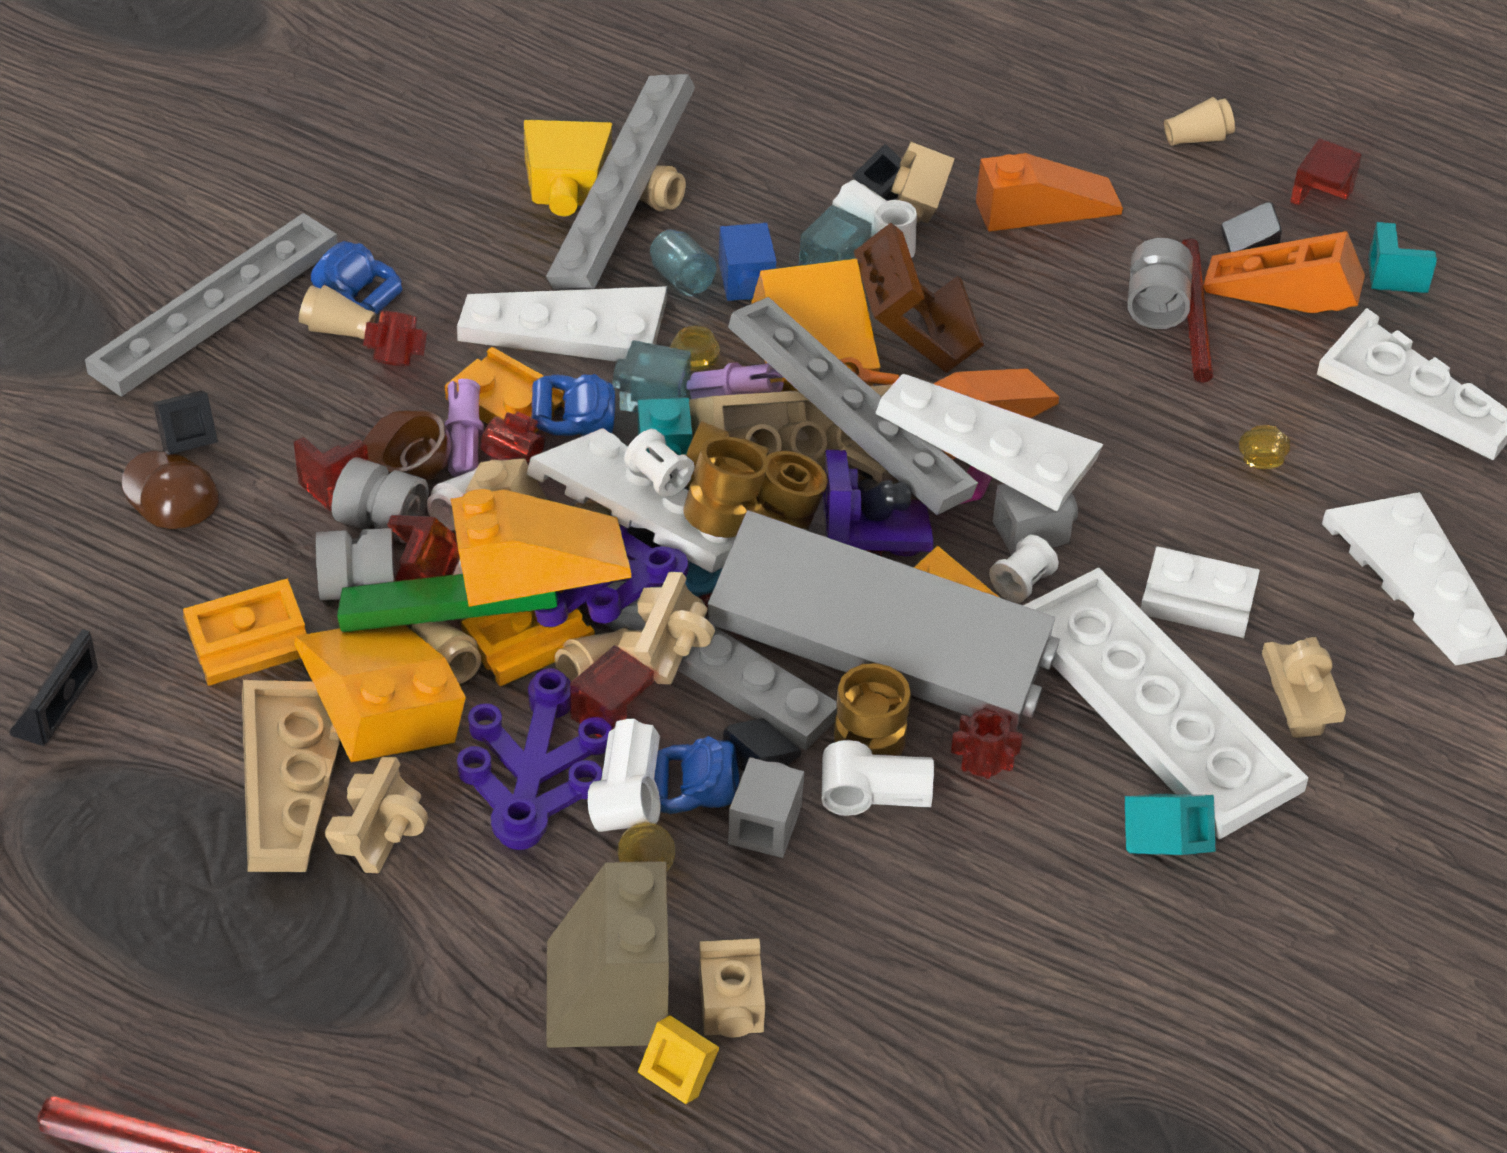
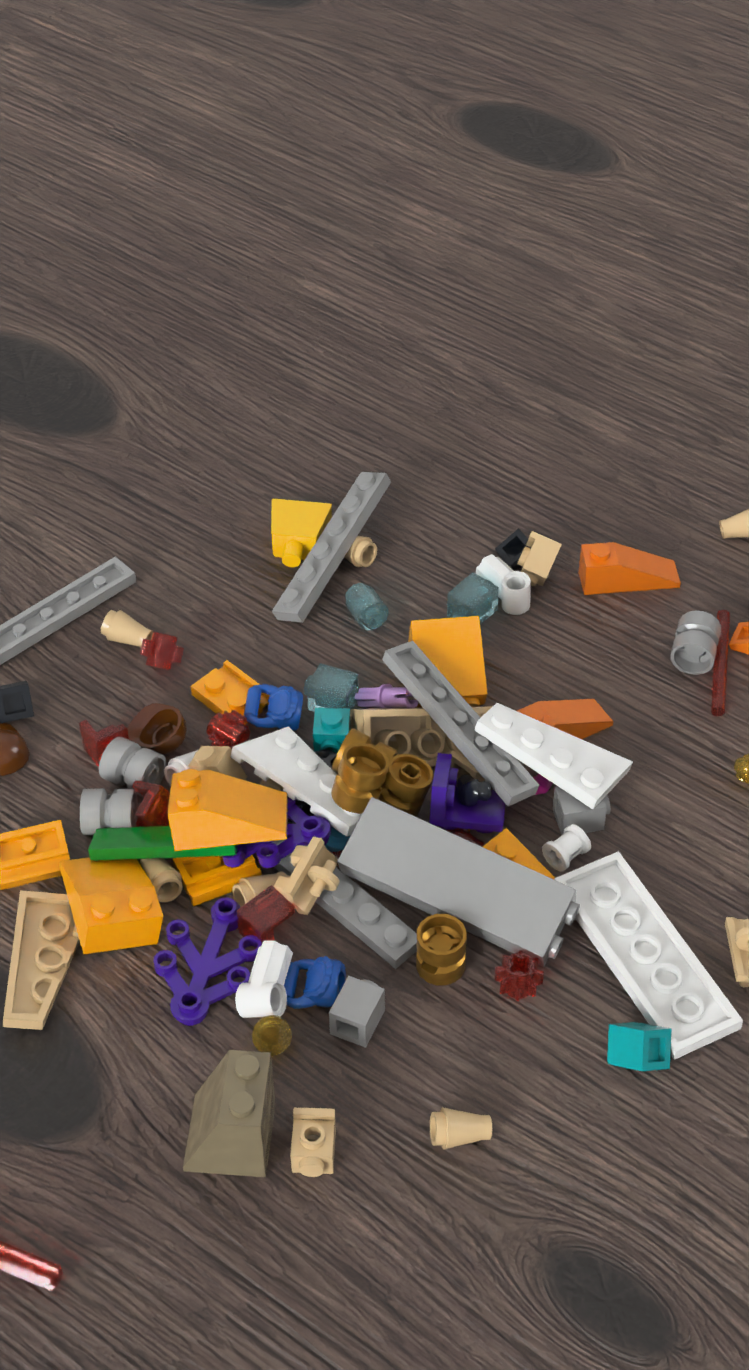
camera: 10 degrees right, 0 degrees up
(351, 267) = (139, 598): blue piece -> none
(382, 814) = (97, 994): tan hips -> none
(463, 426) = (197, 717): lavender axle -> none
(565, 321) = (281, 644): white wing -> none
(659, 463) = (304, 754): white bush -> none
(678, 1059) = (268, 1190): yellow tile -> none
(701, 343) = (367, 668): clear yellow plate -> none
(742, 255) = (407, 606): blue brick -> none
(760, 741) = (363, 963): black slope -> none
(858, 778) = (427, 994): white piece -> none
(870, 376) = (476, 699): orange hand -> none
(895, 289) = (503, 637): reddish brown window -> none
(932, 953) = (457, 1128): none -> tan cone
(1199, 592) = (689, 873): white plate -> none

